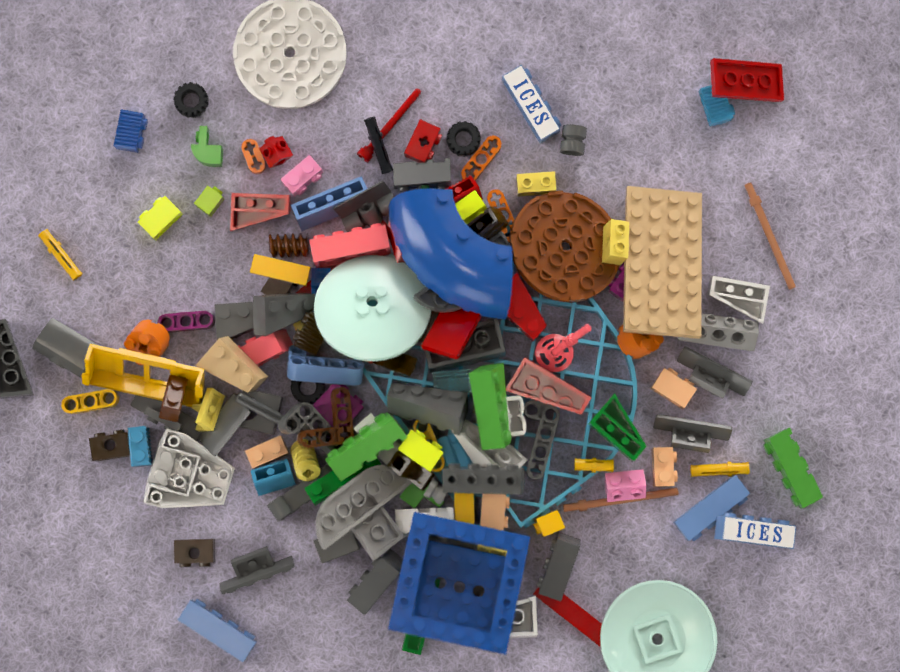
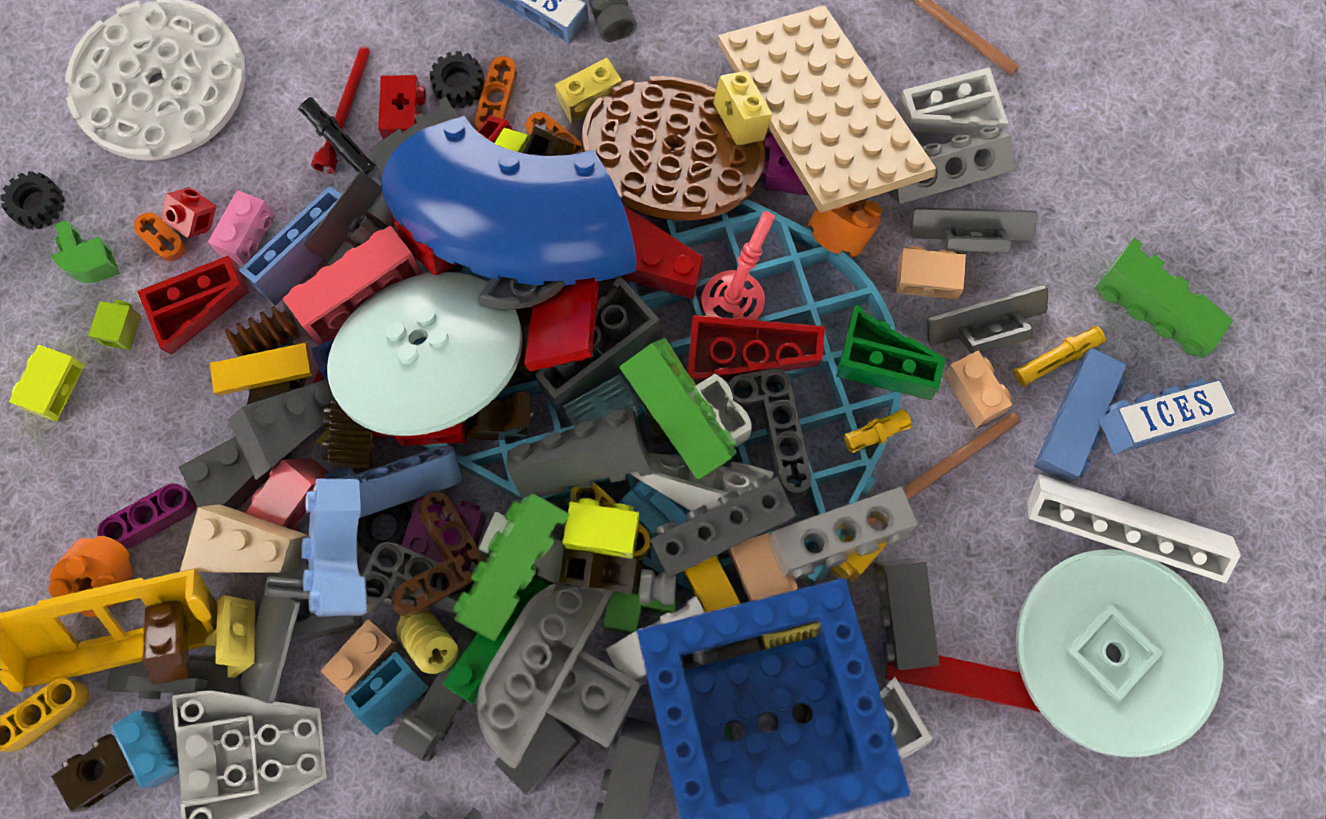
camera: 25 degrees left, 10 degrees down
(277, 396) = (331, 549): none -> light blue brick
(574, 512) = (888, 507): none -> light grey brick
(625, 485) = (938, 442): bright pink brick -> none
(702, 580) = (1133, 528): none -> white brick

